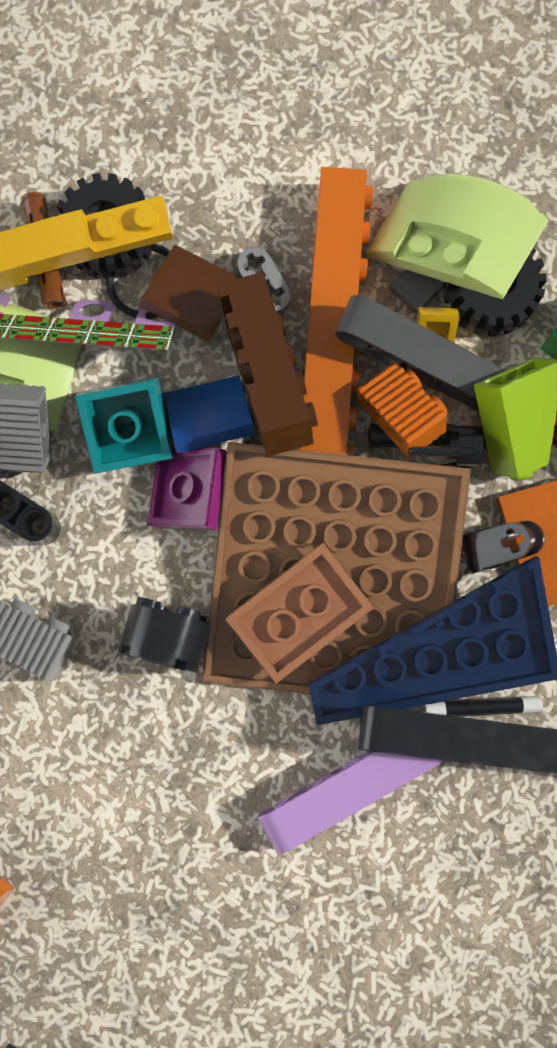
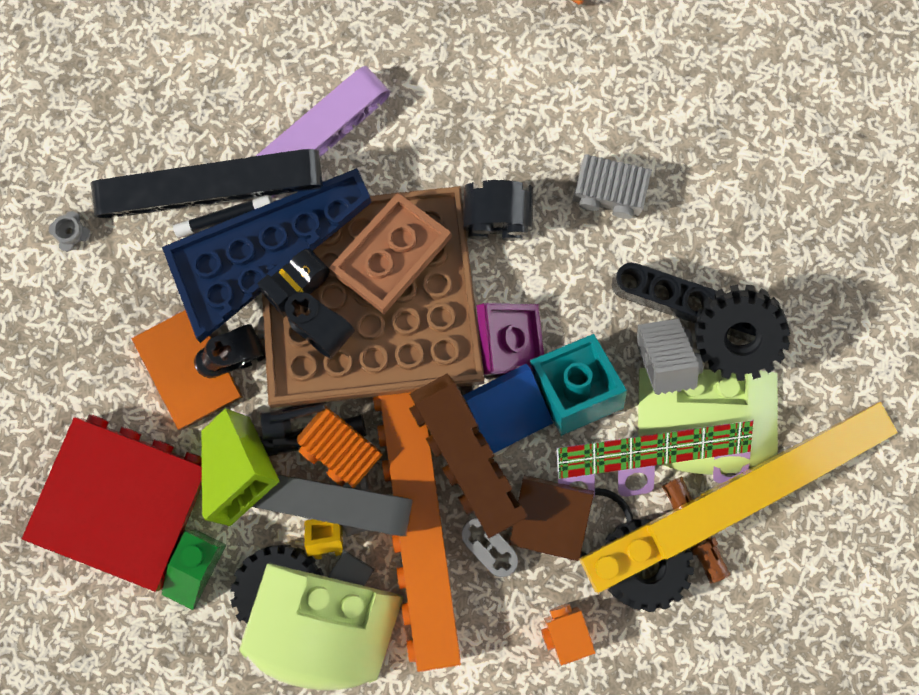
camera: 165 degrees right, 0 degrees up
(204, 176) = (567, 634): none -> orange brick
(396, 536) = (322, 327): none -> black piece
(415, 602) = (302, 274): none -> black leg

